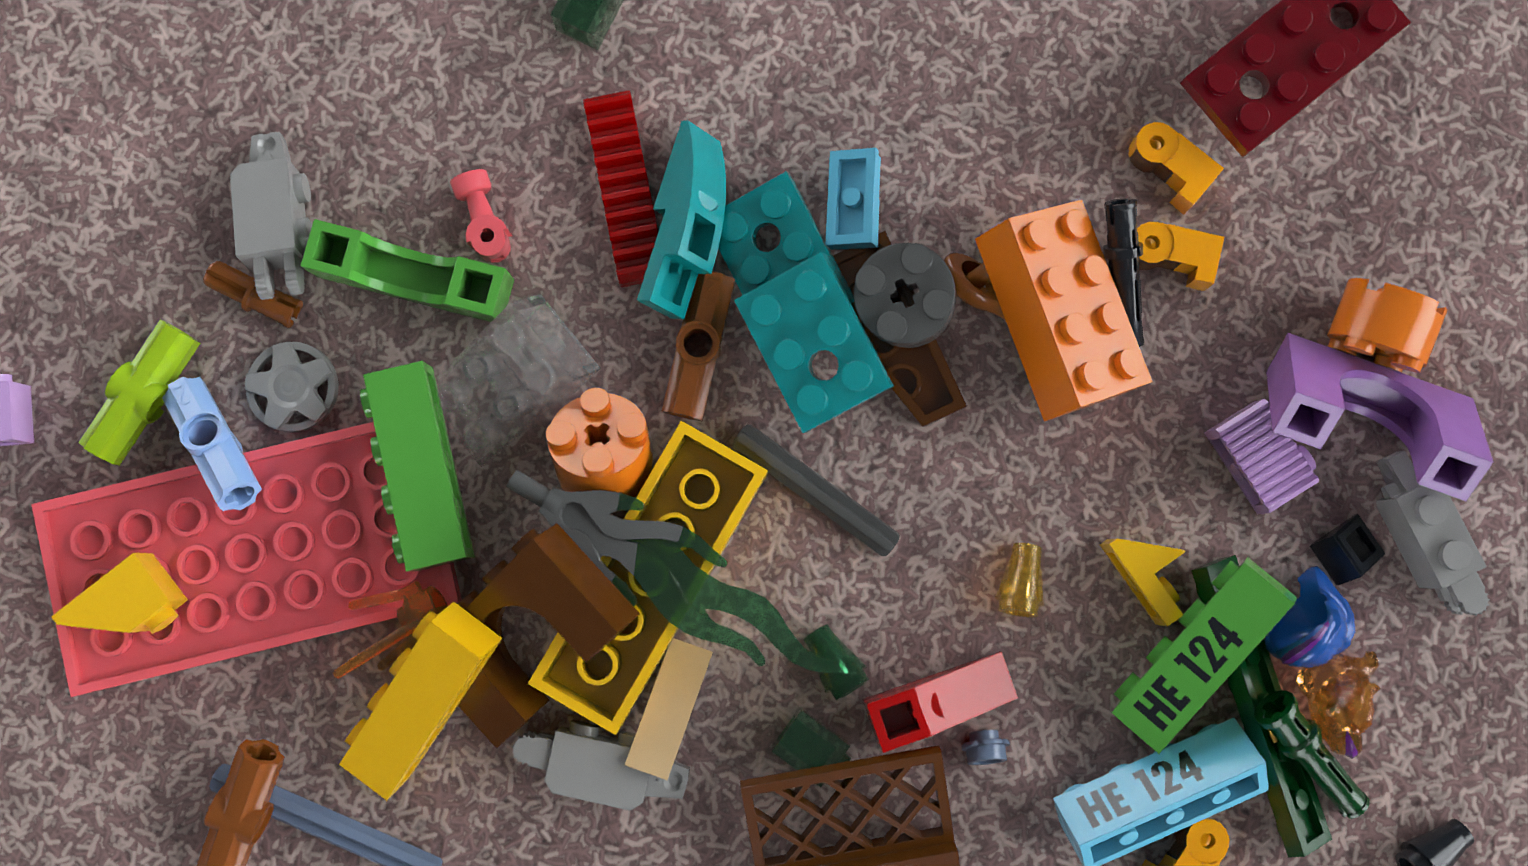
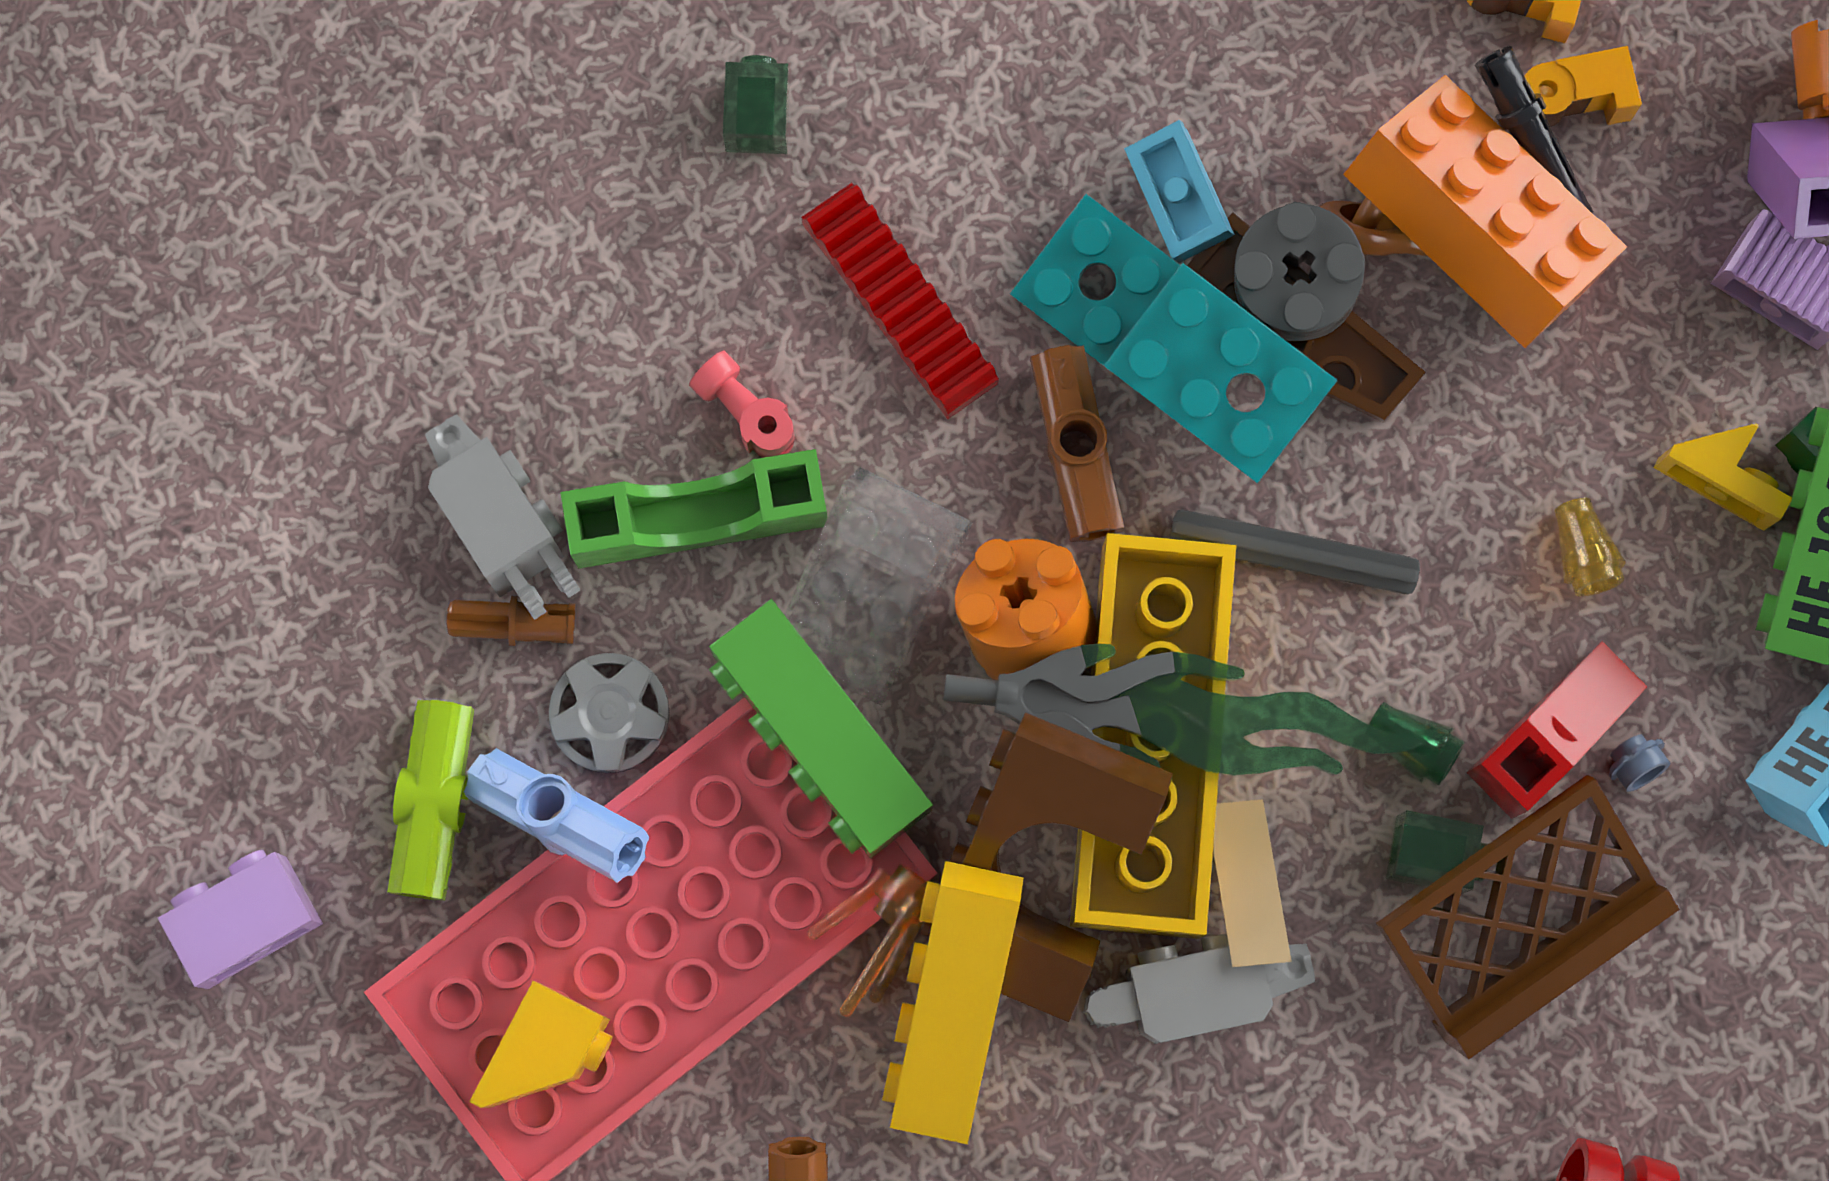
camera: 25 degrees left, 5 degrees down
(692, 222) = (1008, 307): teal slope -> none

